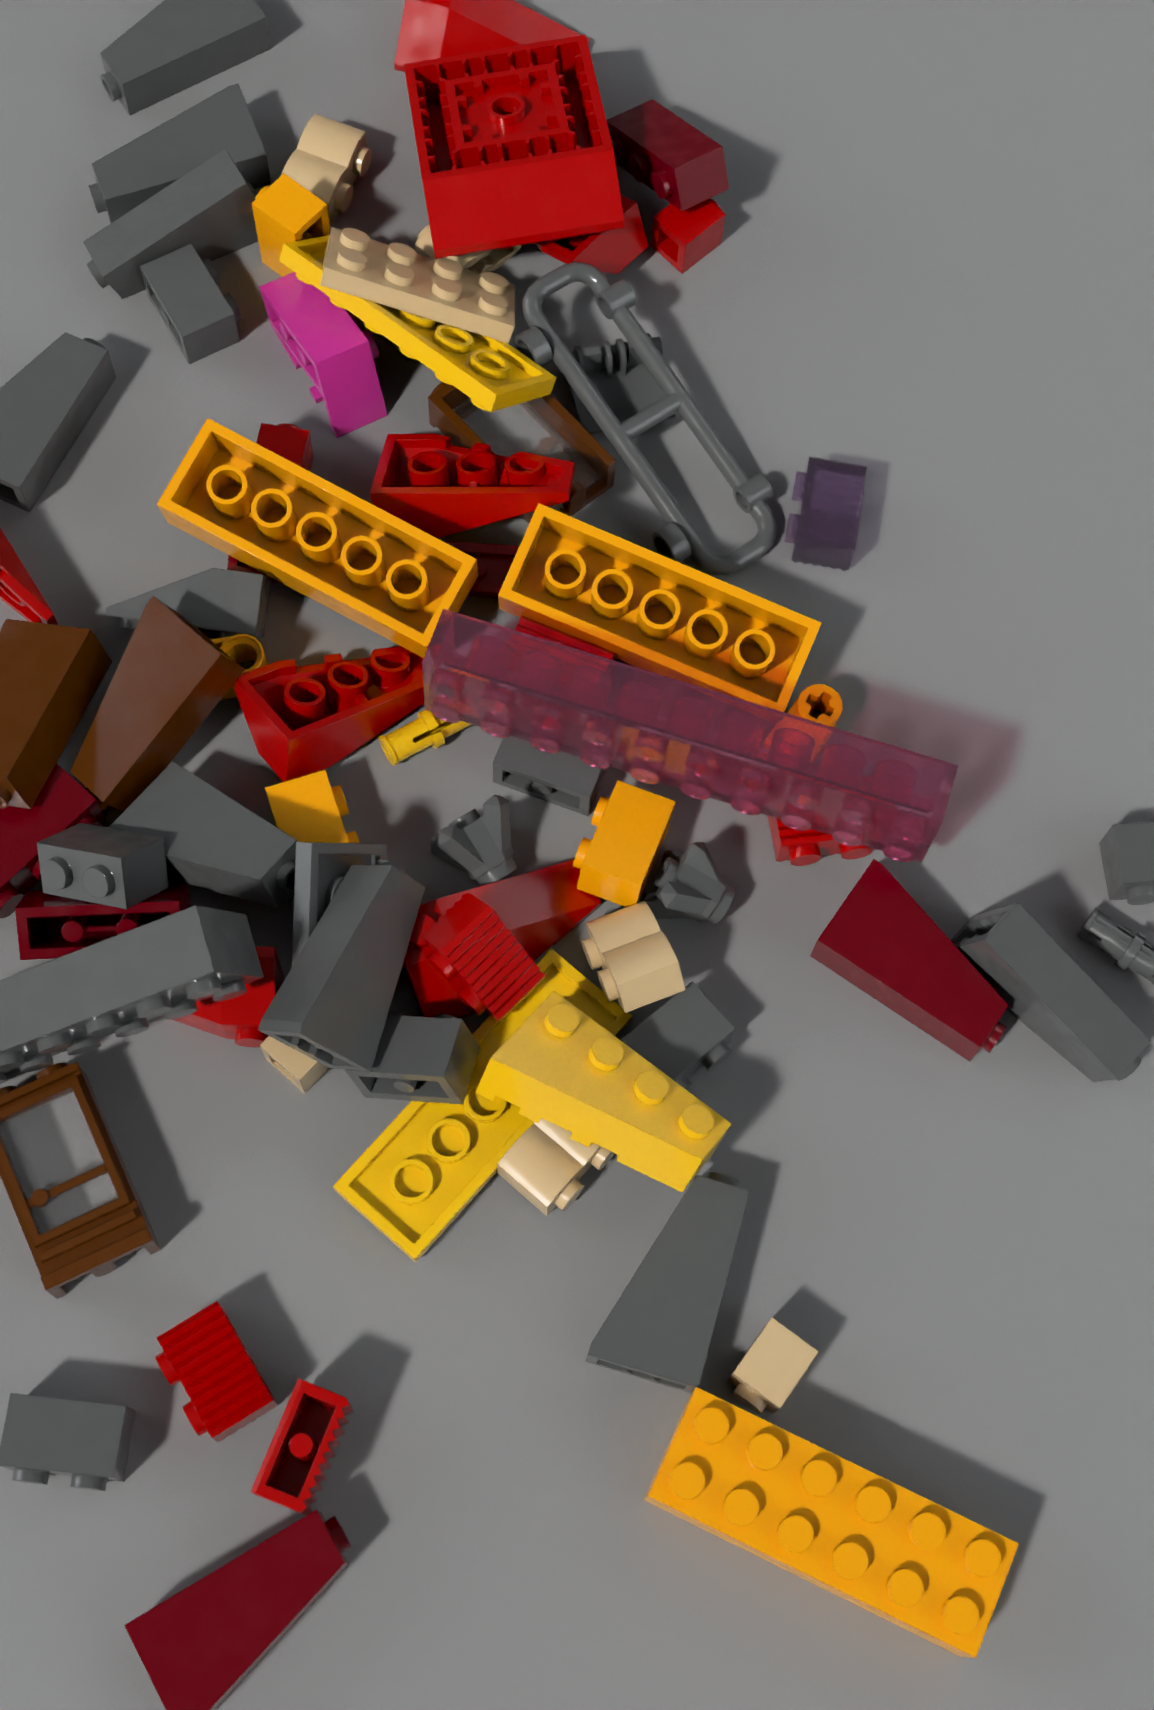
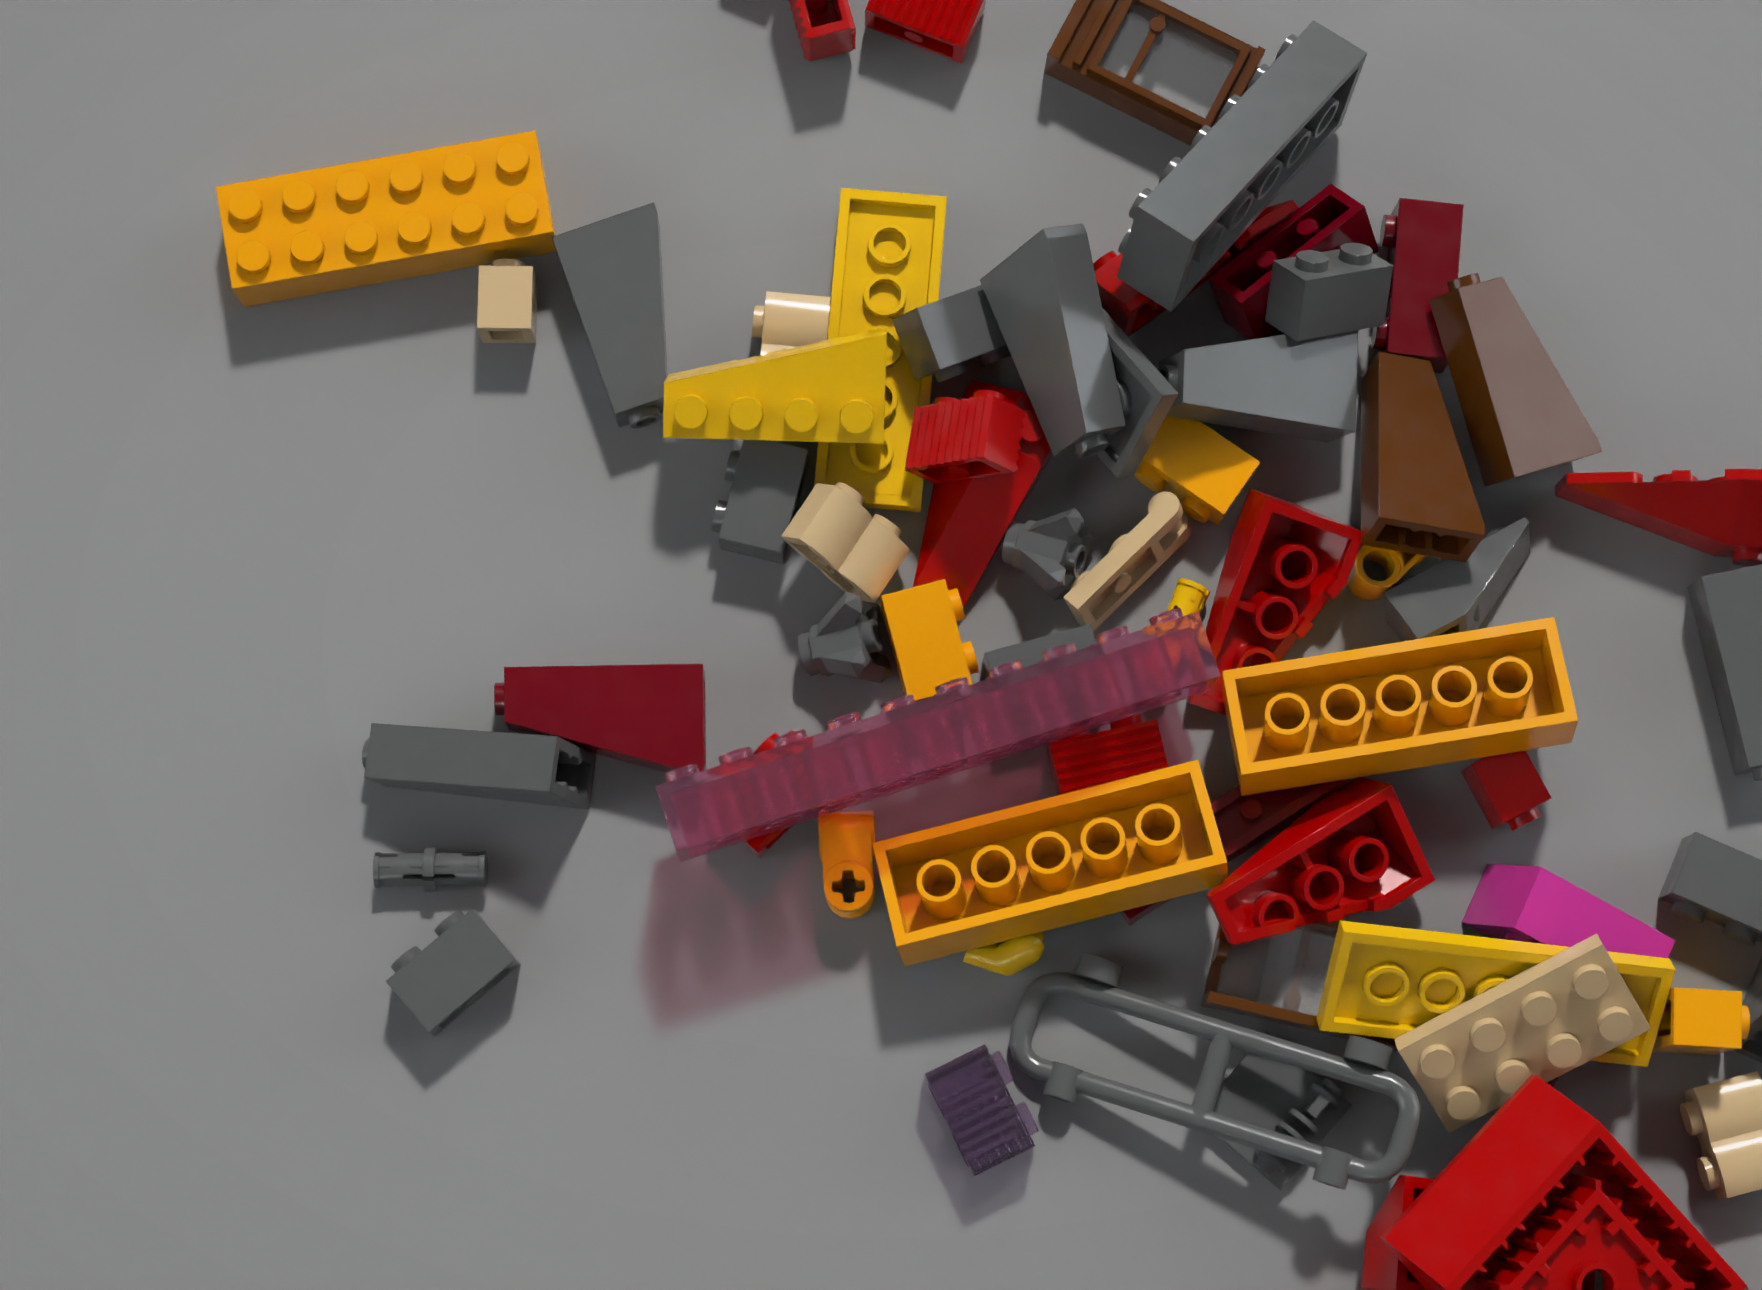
camera: 145 degrees right, 10 degrees up
(421, 797) = (1129, 561): none -> tan plate

